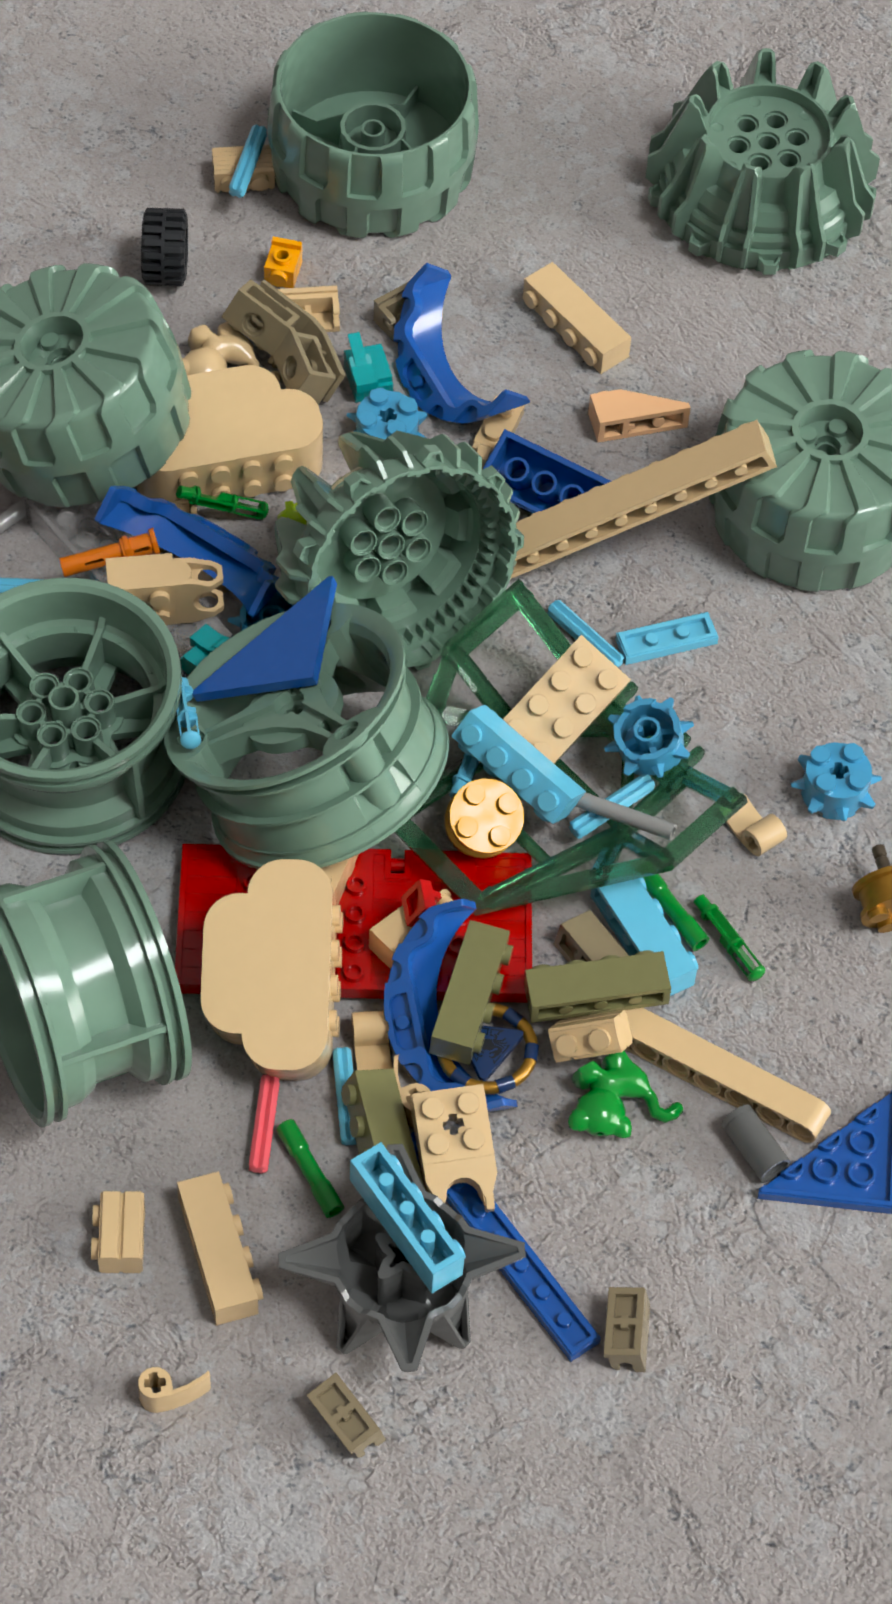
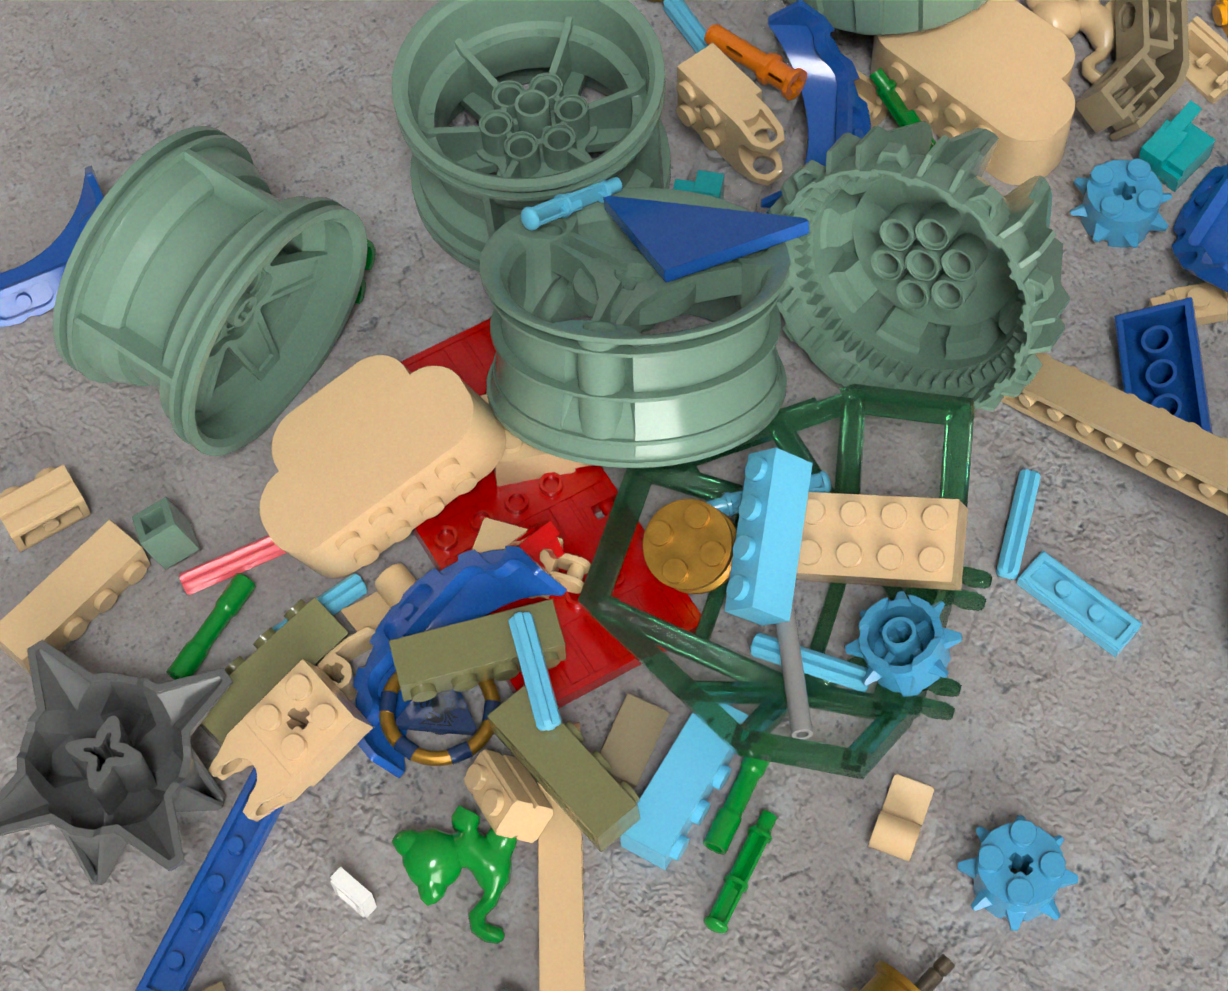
camera: 65 degrees right, 5 degrees up
(214, 1152) = (165, 533): none -> sand green brick
(407, 1217) = (126, 727): medium azure brick -> none
(523, 955) = (534, 671): none -> medium azure axle
(590, 1177) = (353, 892): none -> white tile

